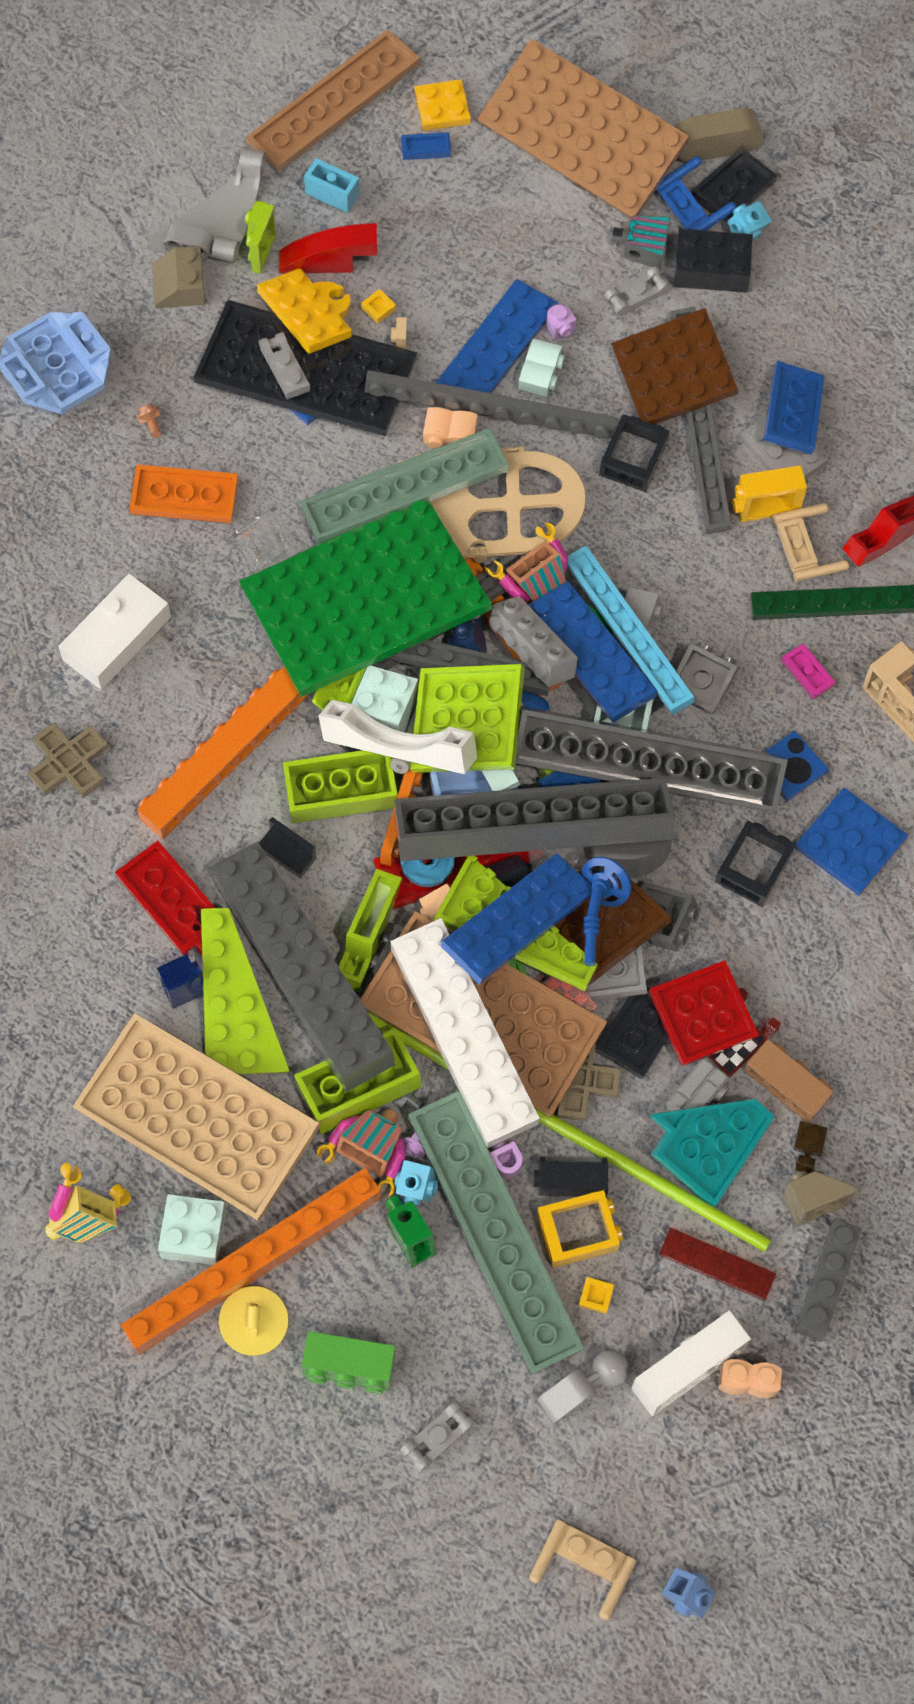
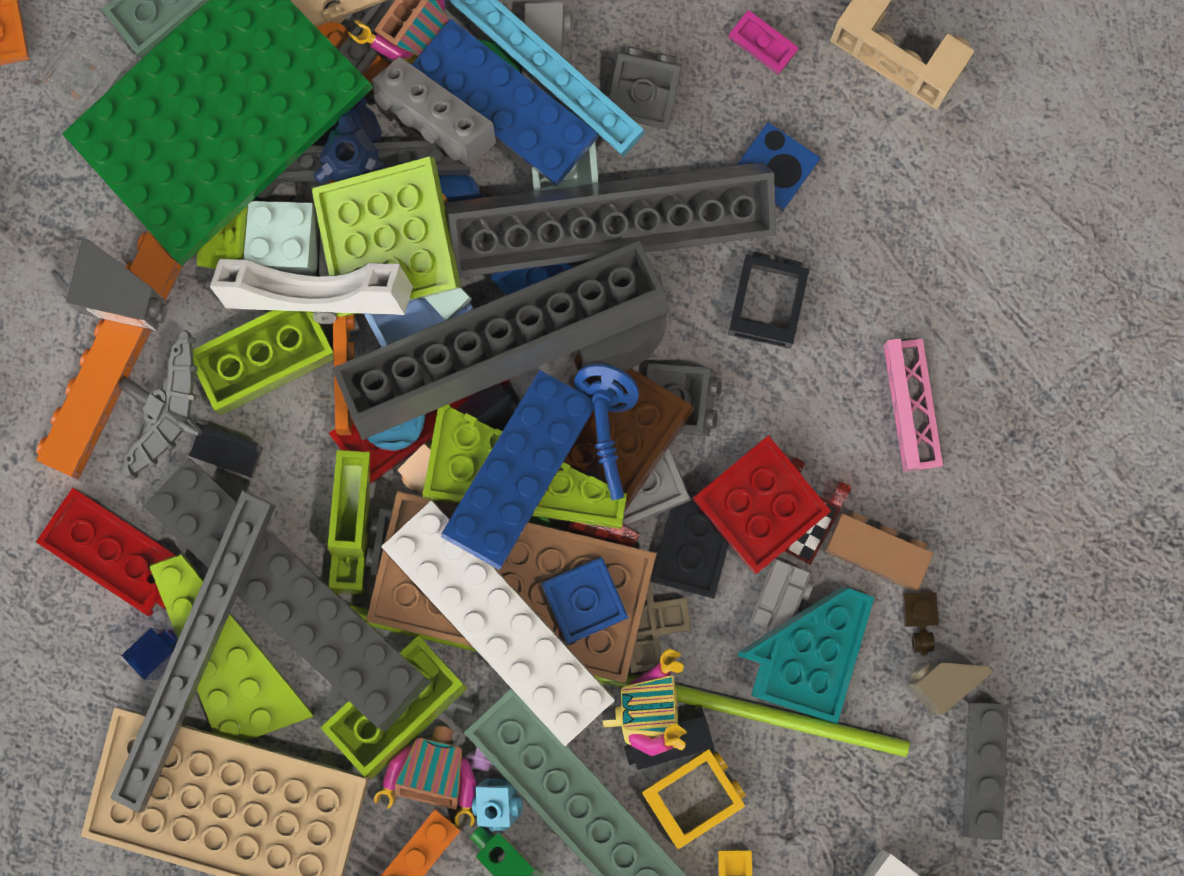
camera: 15 degrees left, 15 degrees up
(213, 982) = (193, 651): none -> dark grey plate
(242, 698) = (112, 292): none -> dark grey slope
(250, 801) = (164, 410): none -> bar
(456, 649) = (347, 153): none -> dark blue rock
(507, 1159) = (590, 745): lavender plate -> none
(538, 1039) = (584, 600): none -> blue tile
(565, 1140) = (650, 709): none -> torso
(717, 1264) = (857, 787): clear red plate -> none
(841, 973) = (902, 404): none -> bright pink fence
(851, 841) = (870, 238): blue plate -> none

